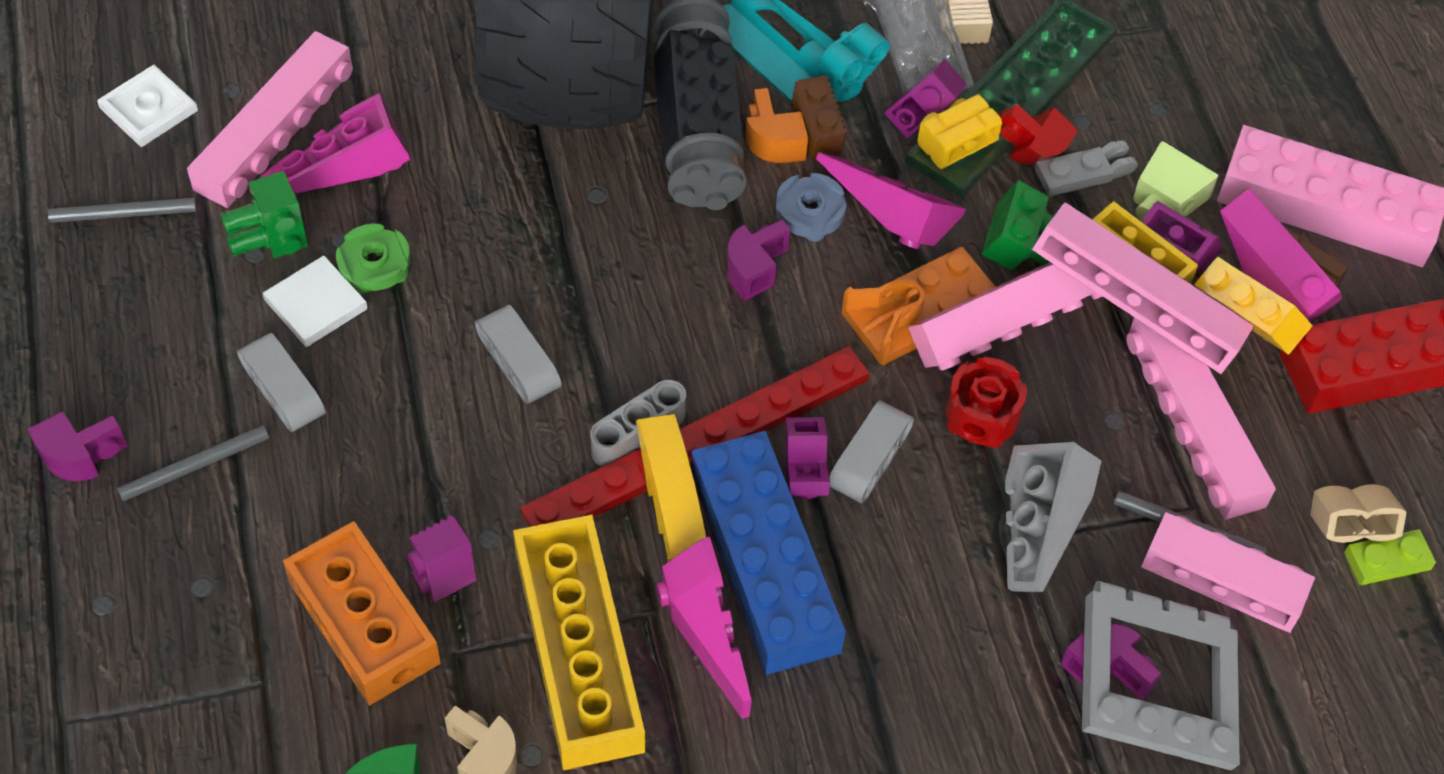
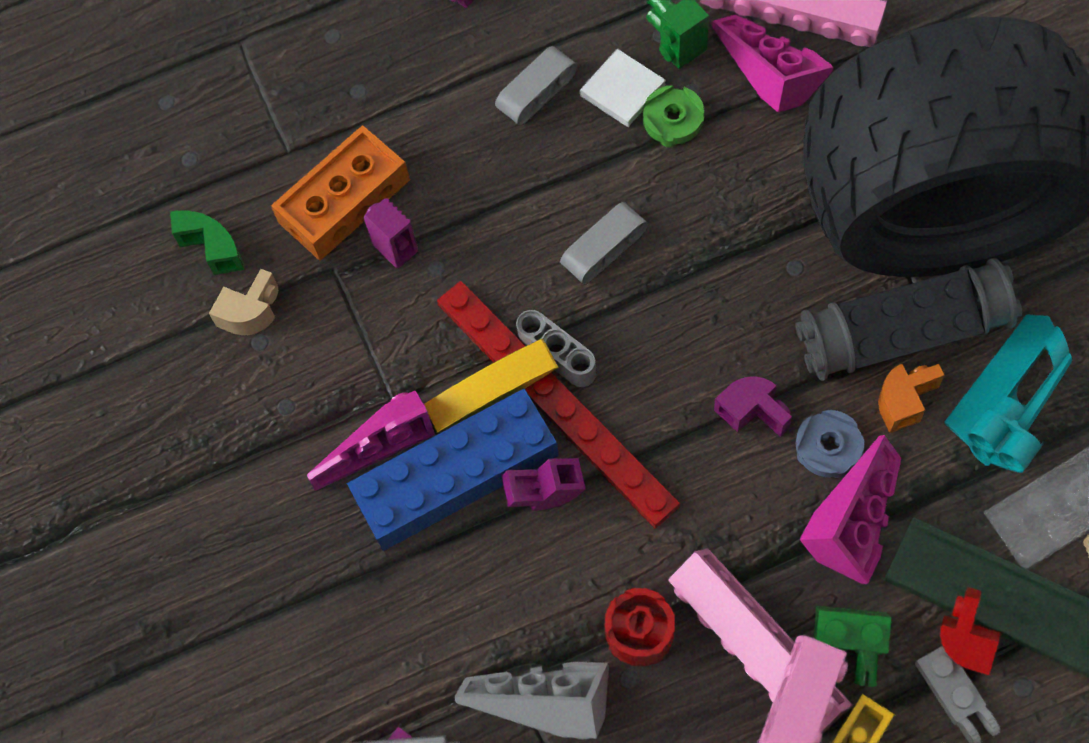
camera: 90 degrees right, 10 degrees up
(192, 463) = (457, 53): dark grey bar -> none
(579, 643) = (343, 345): yellow brick -> none
(820, 115) = (928, 428): reddish brown brick -> none
(870, 451) = (572, 539): light grey beam -> none
(886, 312) = (749, 555): orange plate -> none
(927, 95) = (983, 522): magenta slope -> none
(959, 130) = (945, 555): yellow brick -> none

